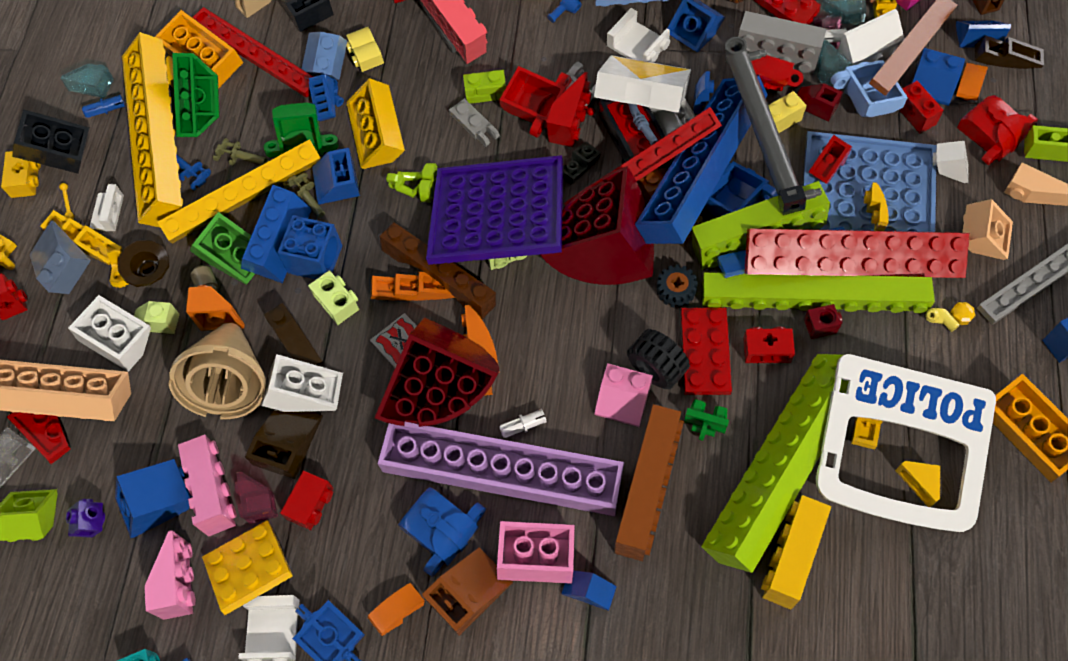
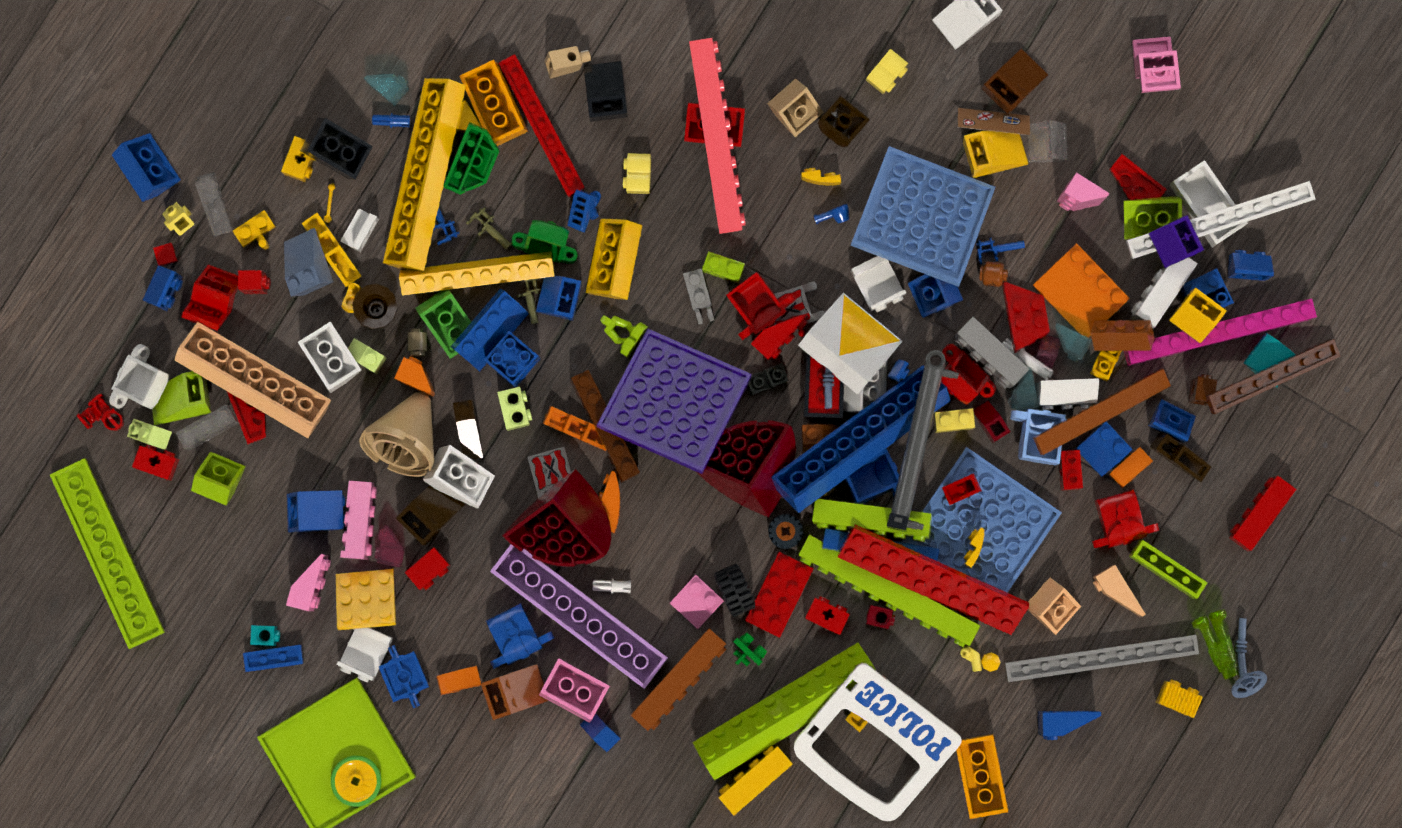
camera: 20 degrees right, 20 degrees up
(85, 518) = (261, 504): dark purple brick -> none
(324, 54) = (598, 166): medium blue slope -> none
(669, 146) = (823, 419): red plate -> none
(922, 479) = (877, 771): yellow slope -> none
(952, 160) = (1062, 535): white slope -> none

